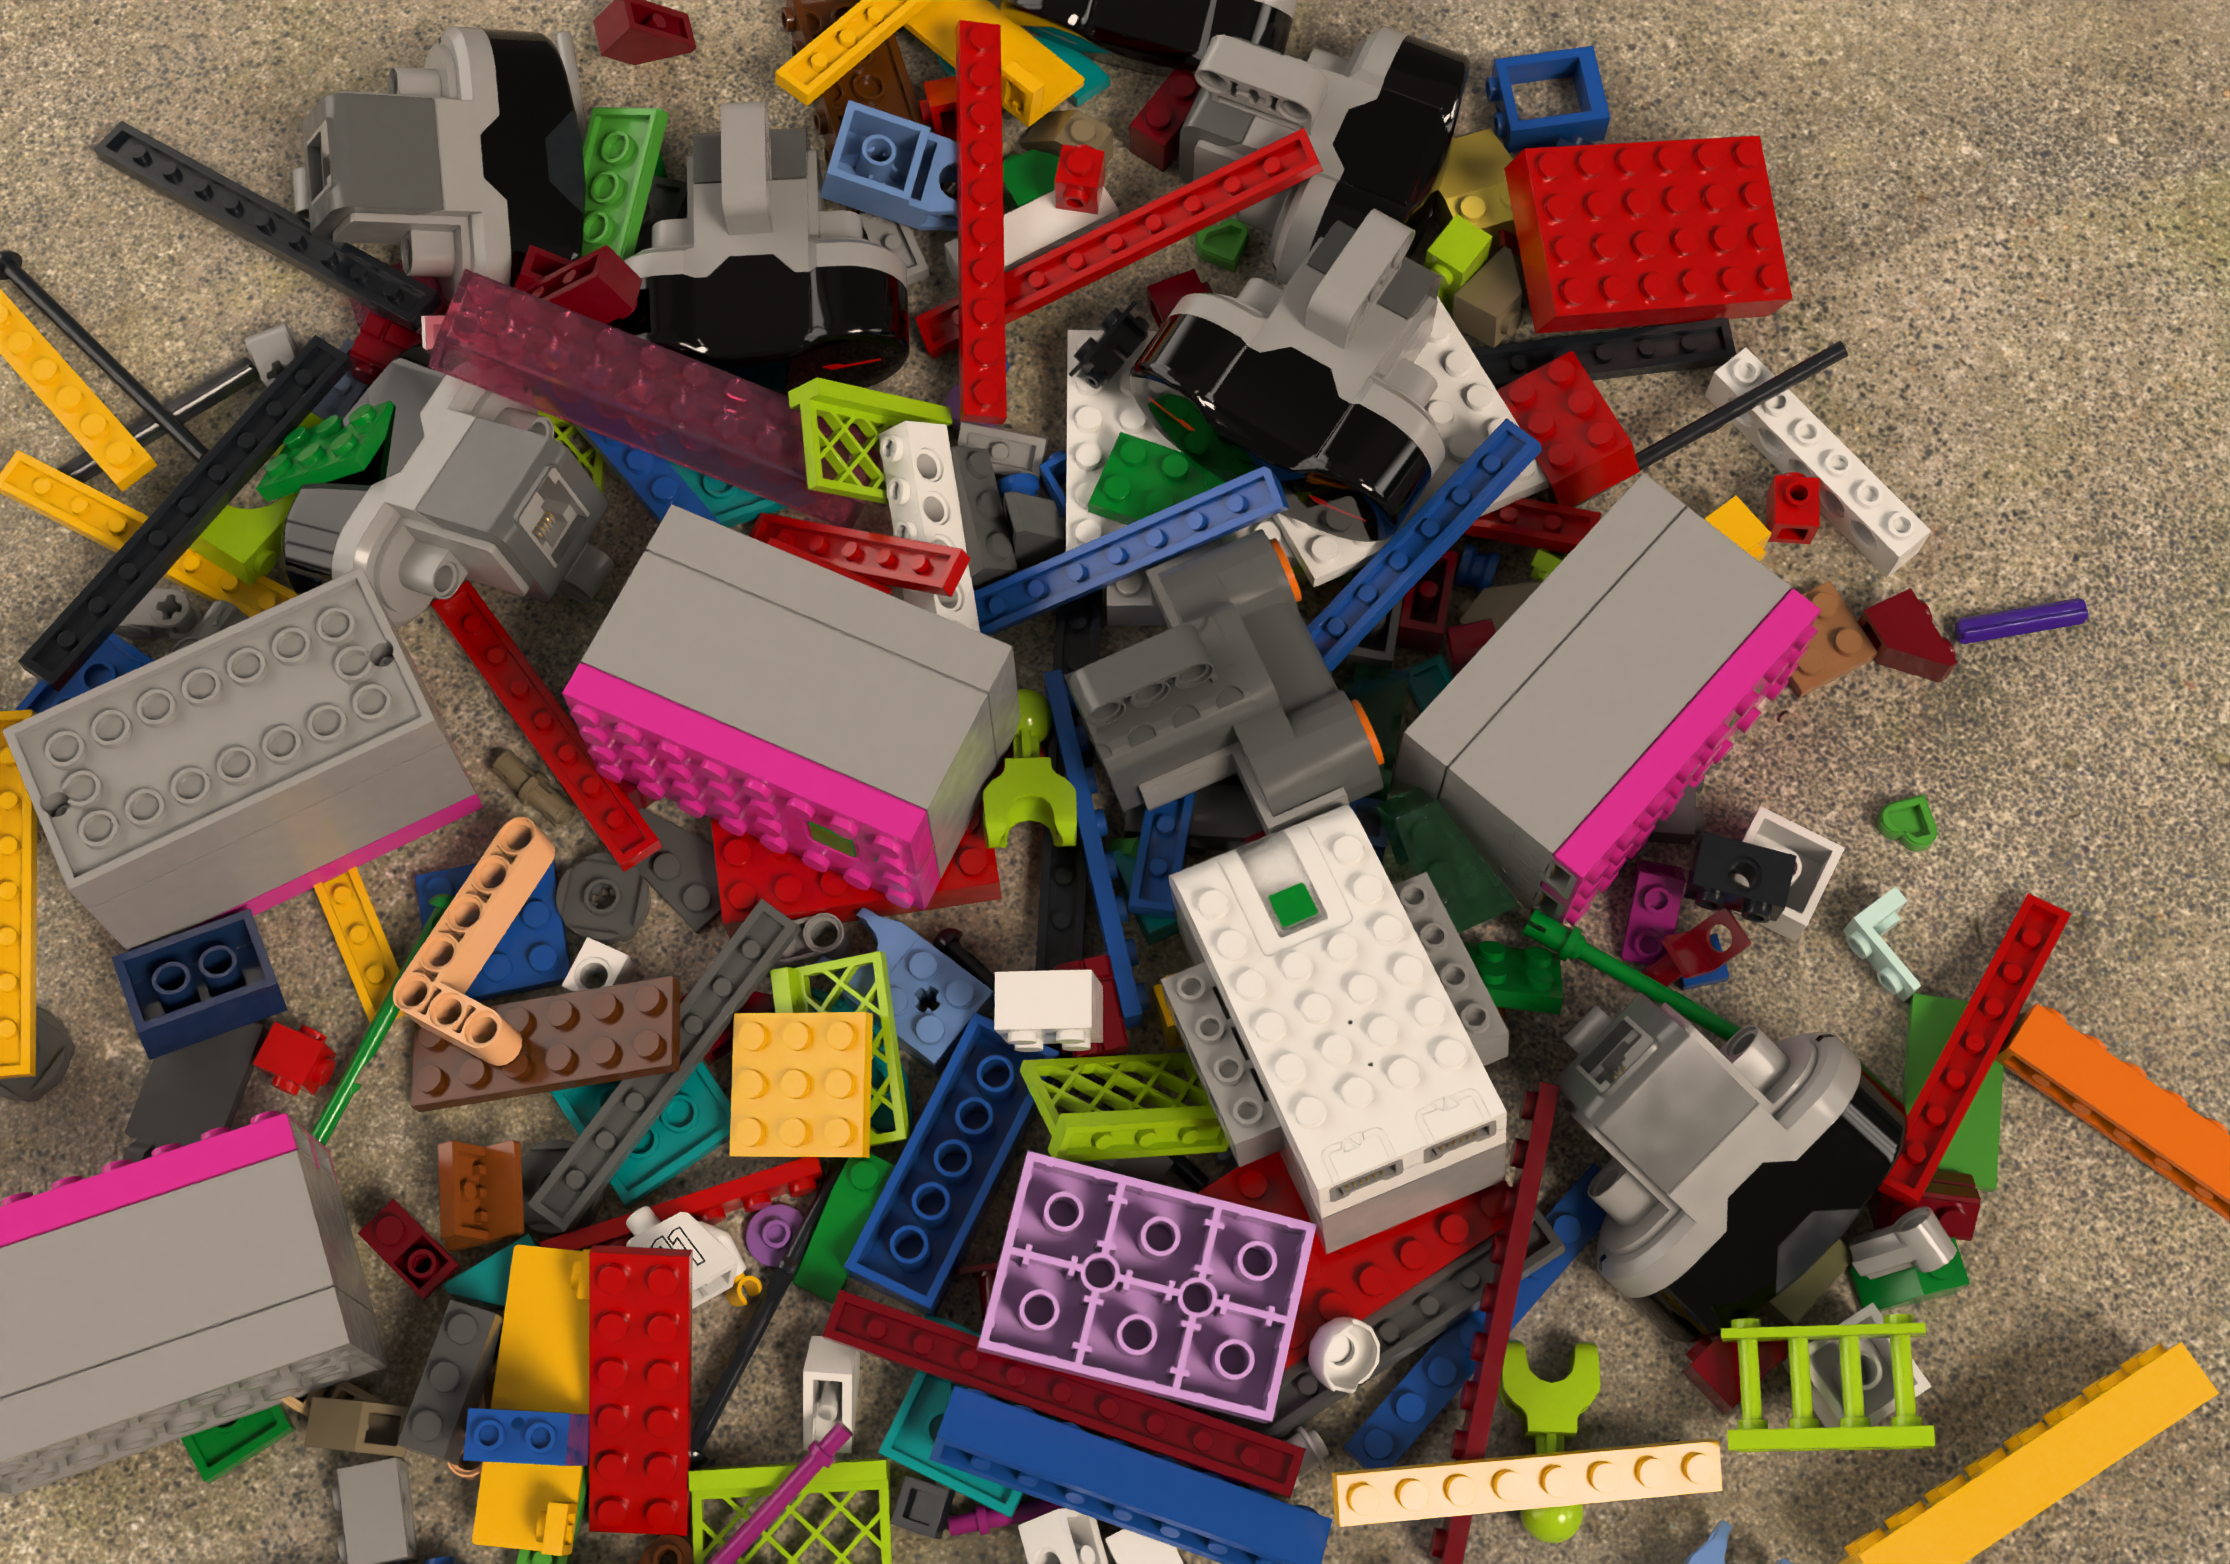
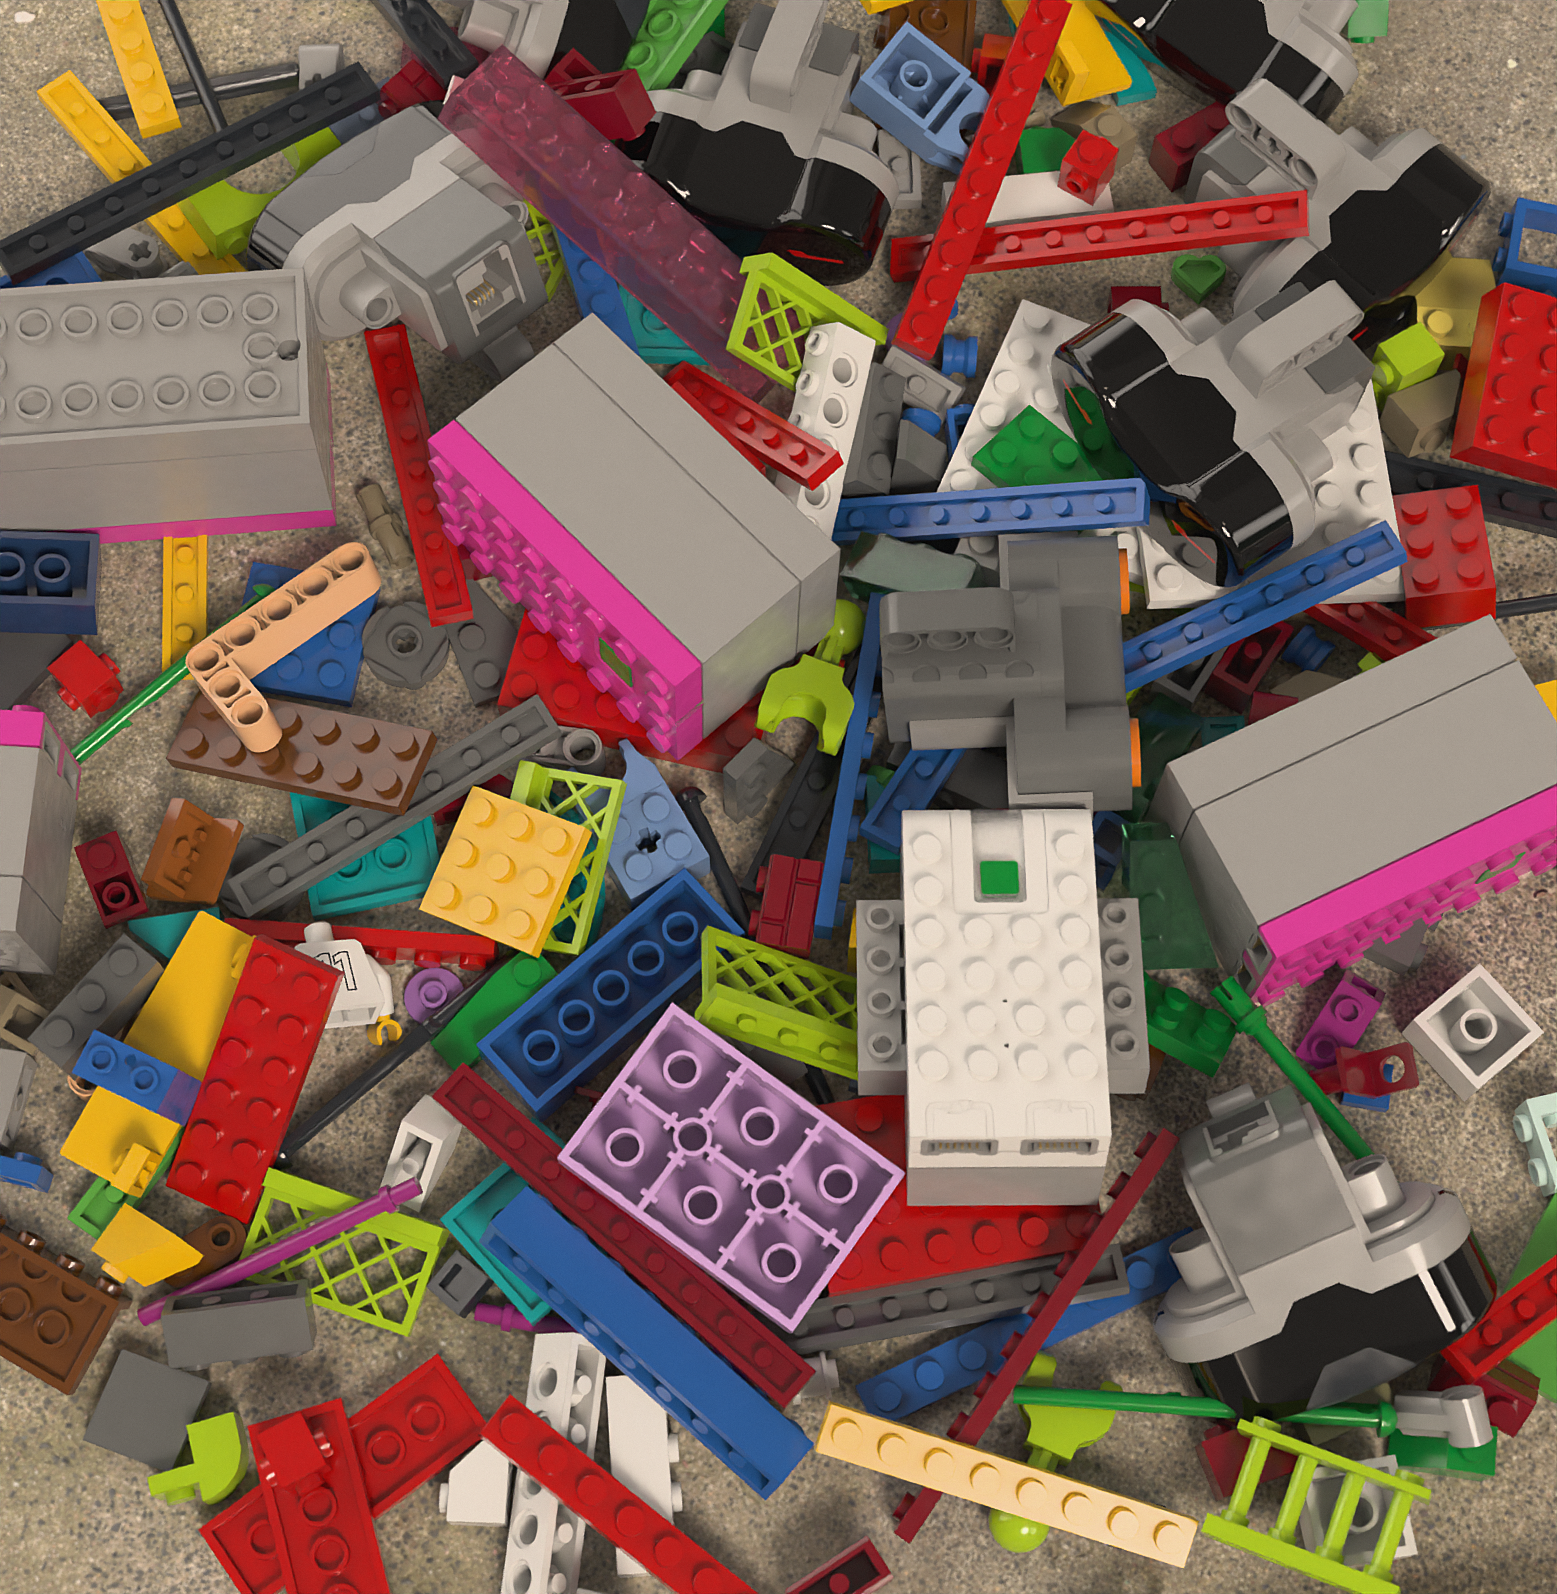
camera: 20 degrees right, 0 degrees up
(324, 453) = (322, 163): green plate -> none
(598, 958) = (375, 693): white brick -> none
(1002, 900) = (752, 777): none -> dark grey wing
(1028, 407) = (959, 355): none -> blue wheel
(1049, 1009) = (747, 888): white brick -> none
(1074, 637) = (892, 566): none -> wedge
(1120, 332) = (1038, 332): black hinge -> none
(1344, 1353) = (886, 1301): white hair -> none
(1765, 869) = (1457, 1020): black brick -> none
(1843, 1271) = (1368, 1415): none -> green bar

